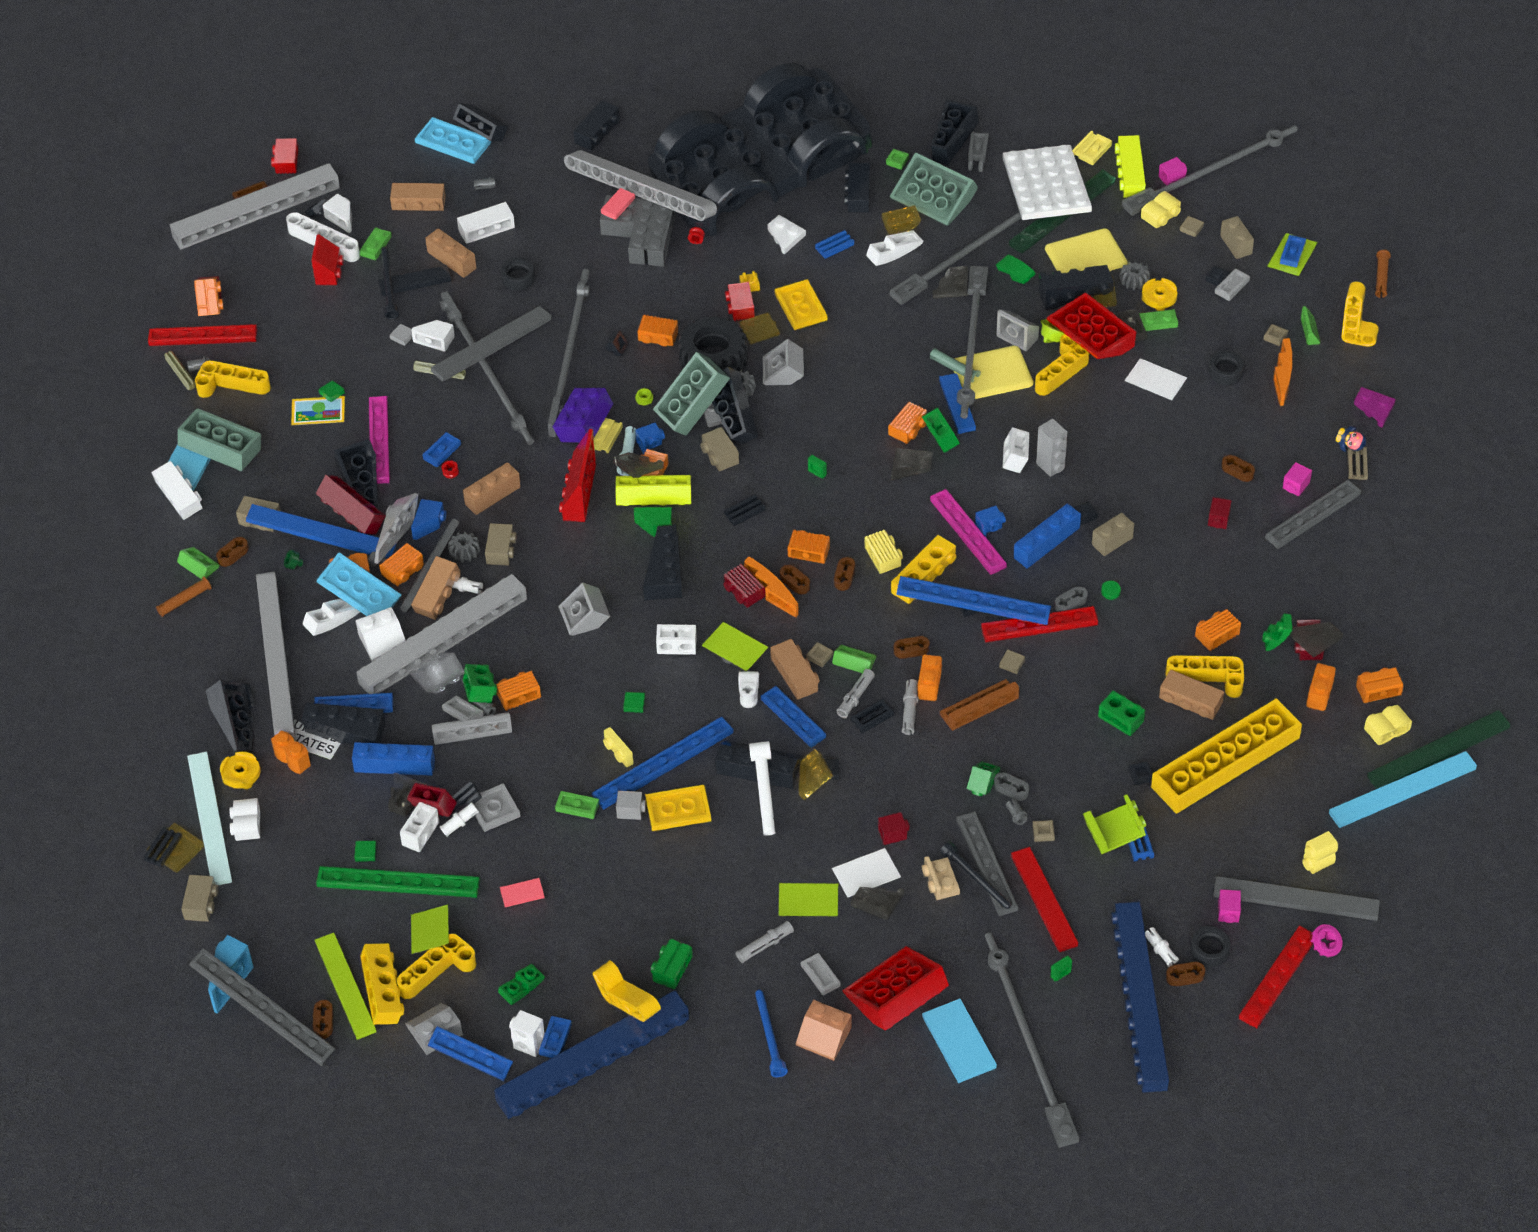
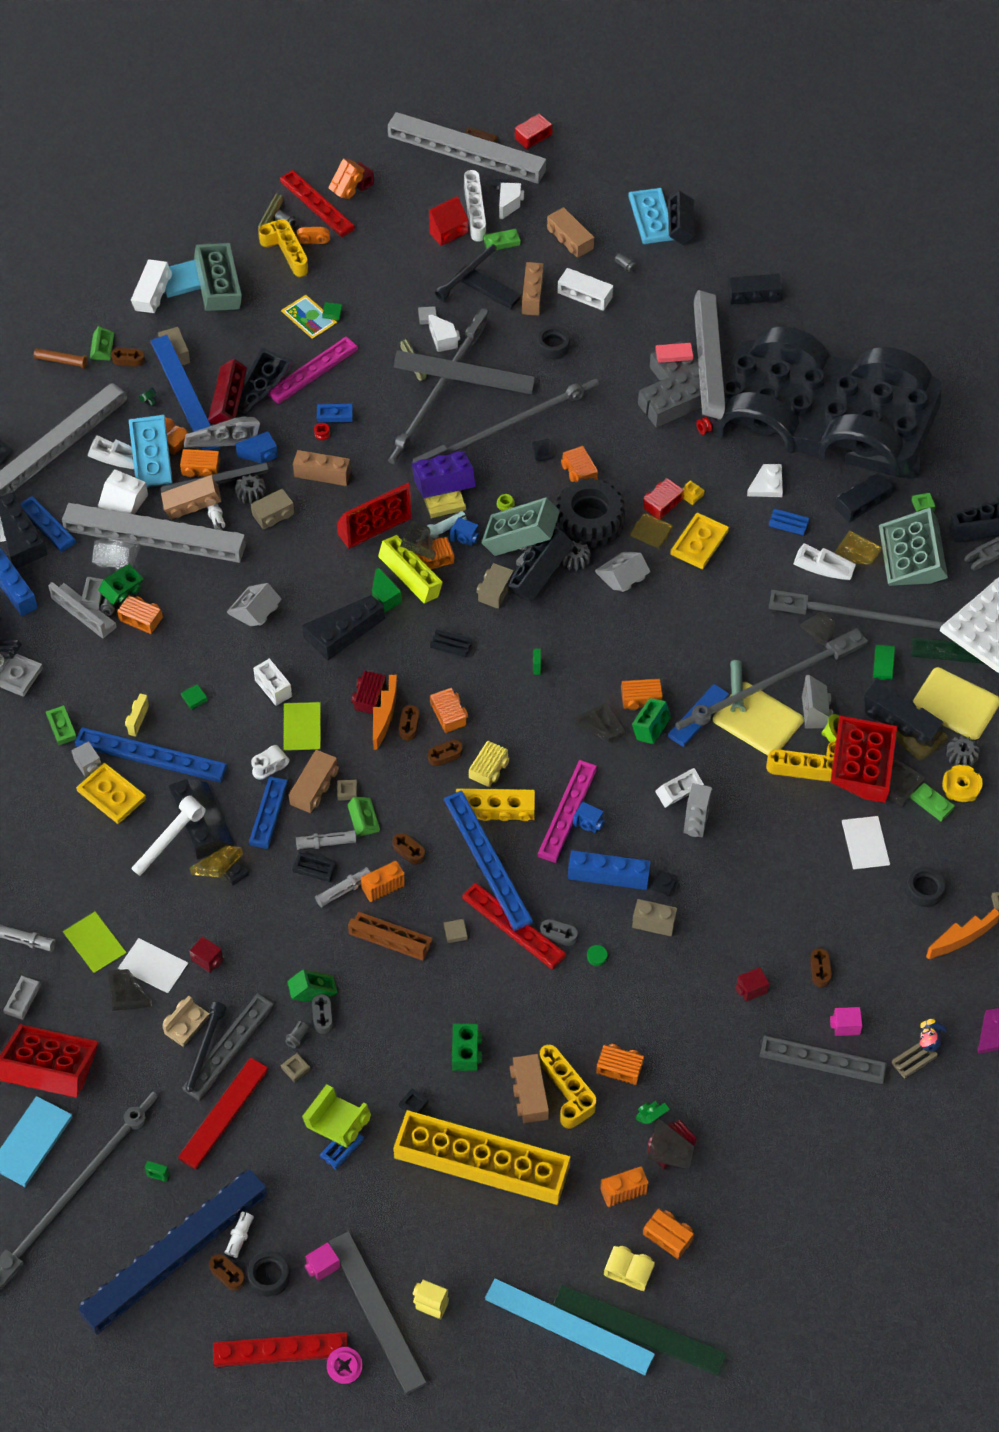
camera: 50 degrees right, 5 degrees up
(240, 354) = (313, 235): none -> orange plate

